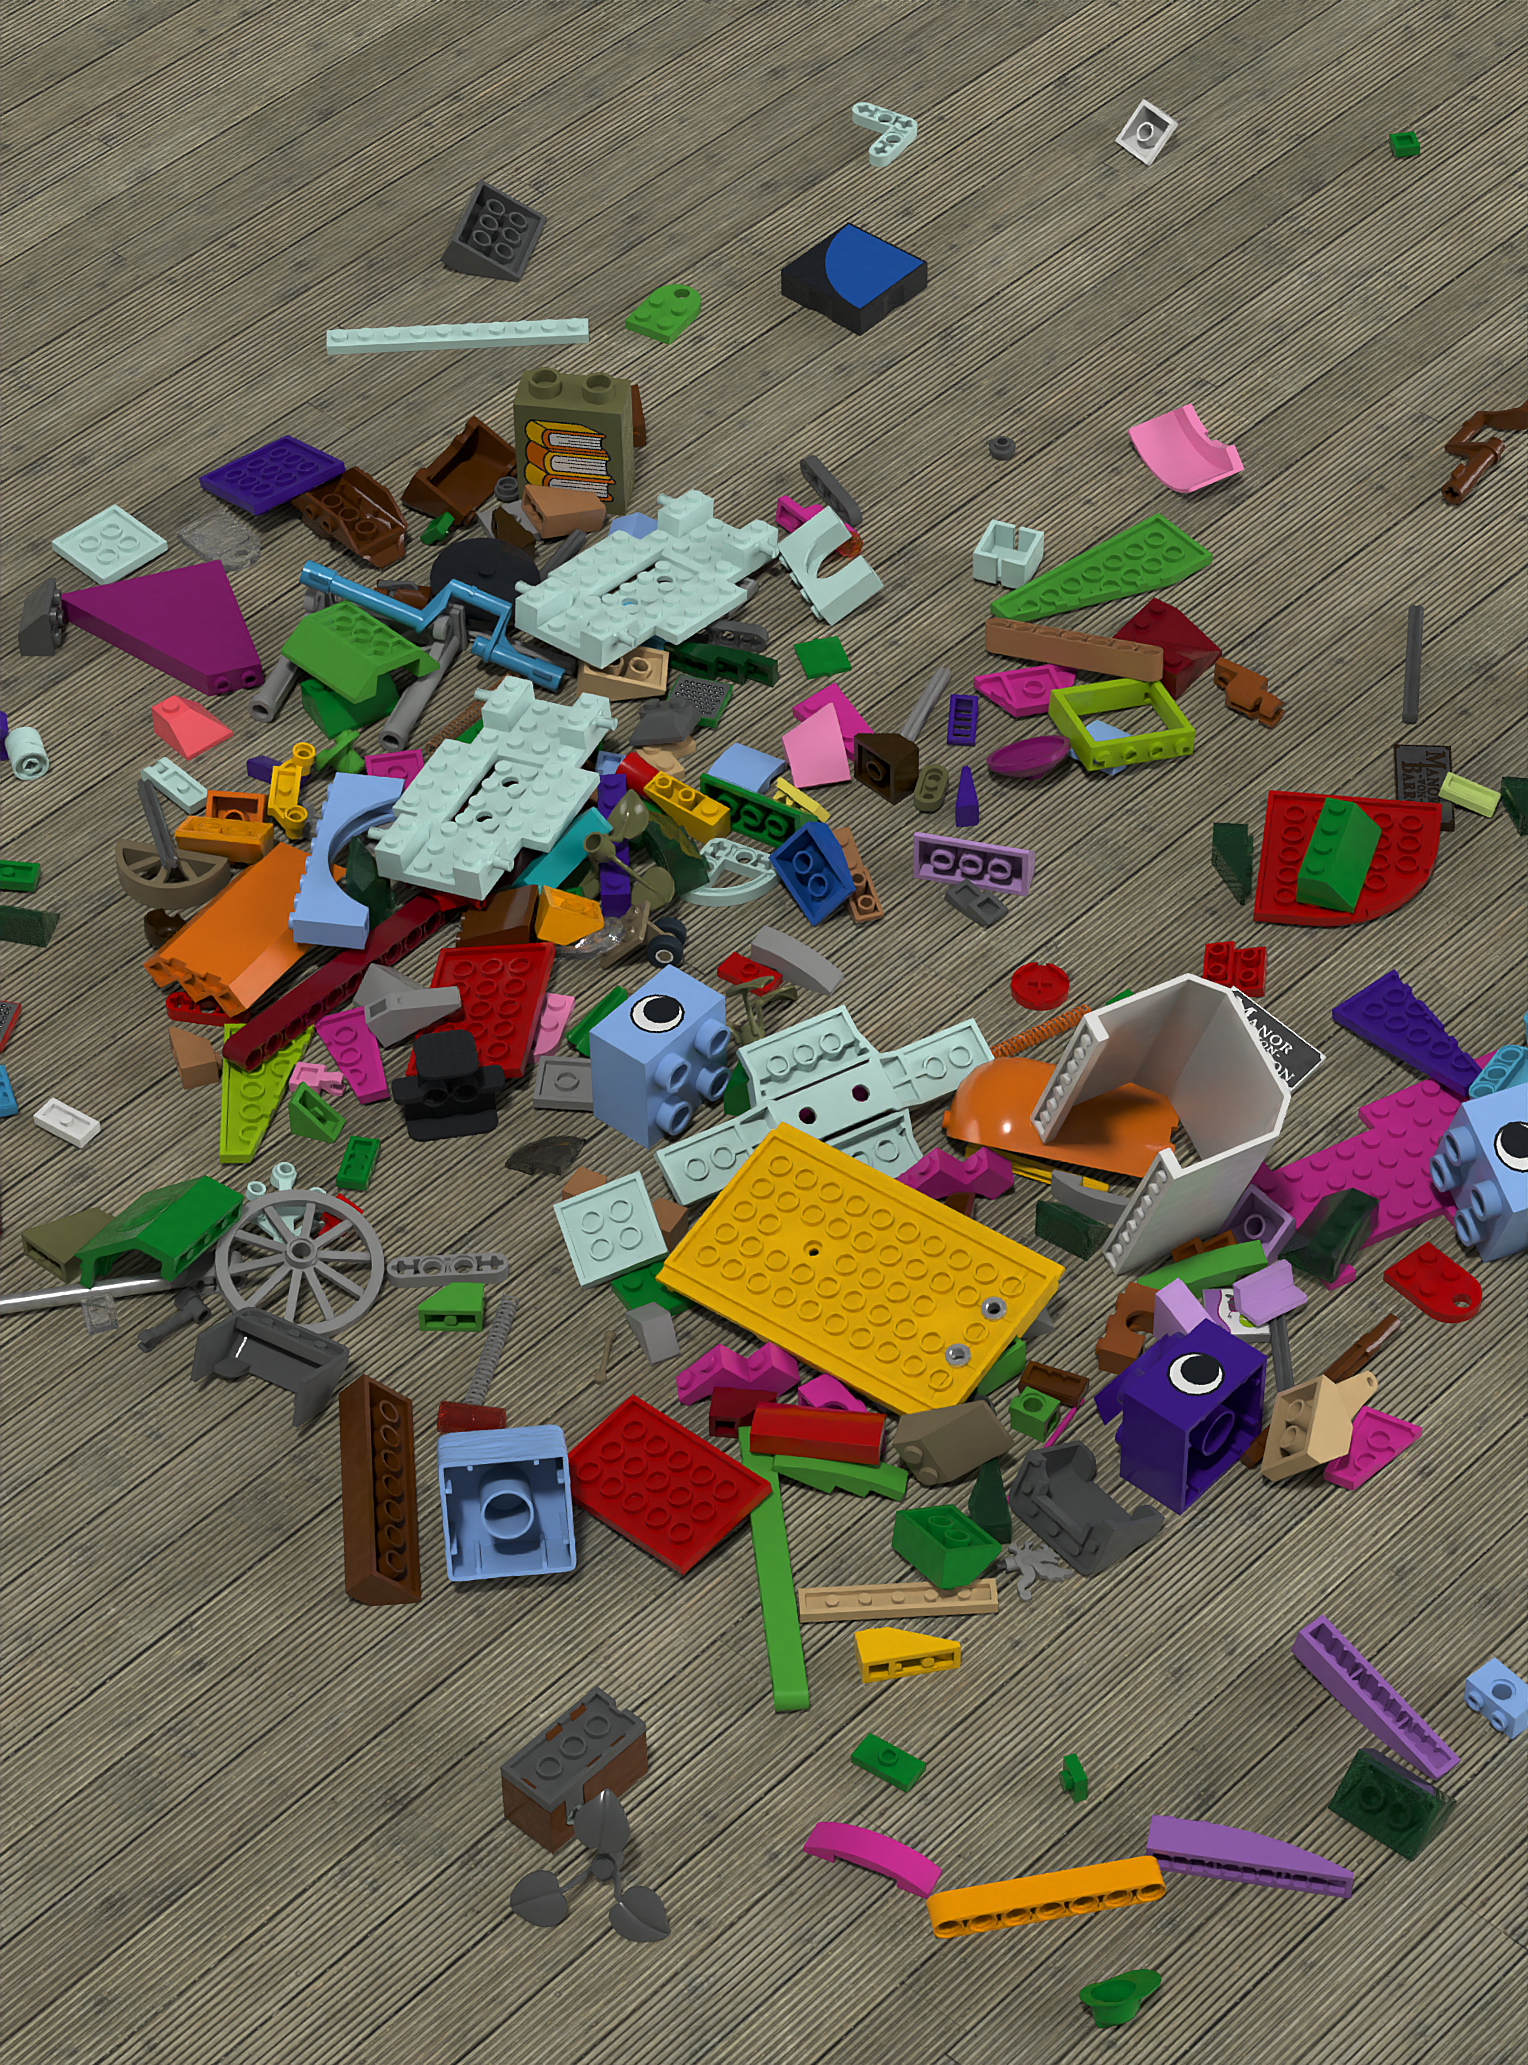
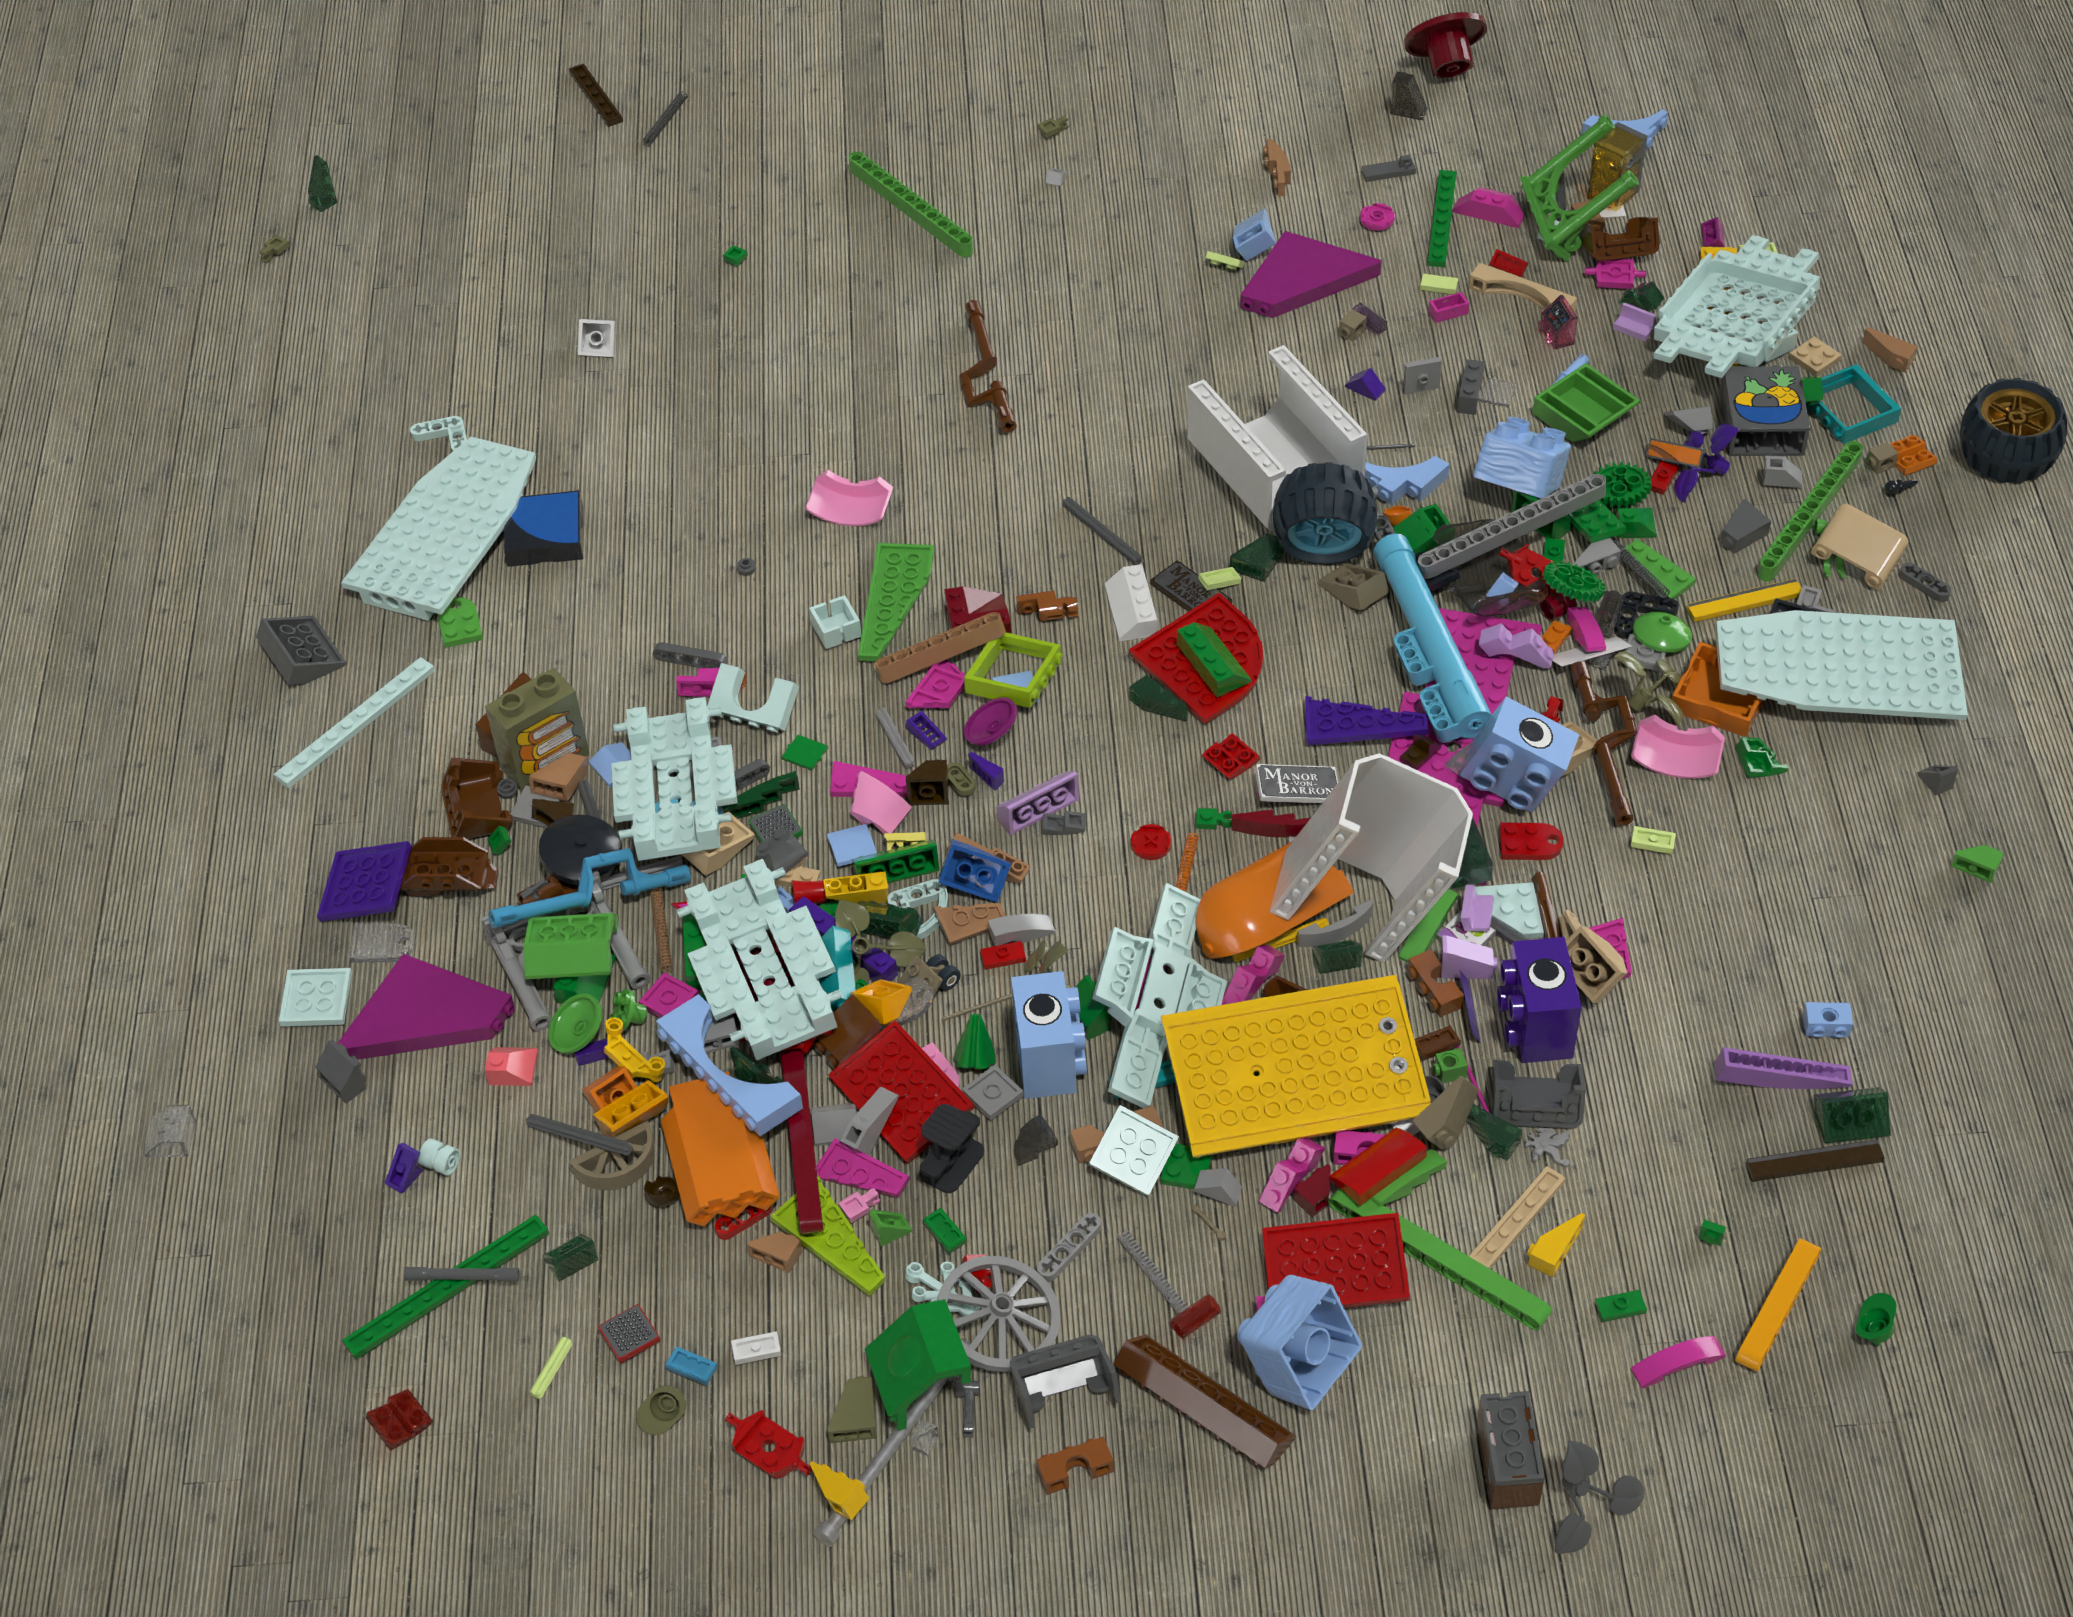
camera: 45 degrees left, 5 degrees up
(169, 1434) = (1091, 1455): none -> dark orange arch
(176, 785) = (550, 1104): light aqua plate -> none
(282, 732) = (575, 1023): none -> bright green dish
(454, 1308) = (1107, 1262): bright green slope -> none
(746, 912) = (966, 921): none -> medium nougat wing
(757, 211) = (442, 529): none -> light aqua wing
(943, 1544) = (1510, 1170): green slope -> none
(1242, 1857) = (1826, 1203): medium lavender slope -> none
(1291, 1812) = (1815, 1160): none -> dark brown tile
(1322, 1329) = (1516, 907): none -> light aqua plate
(1342, 753) = (1131, 603): none -> white slope
(1432, 1107) = (1420, 752): none -> dark brown slope

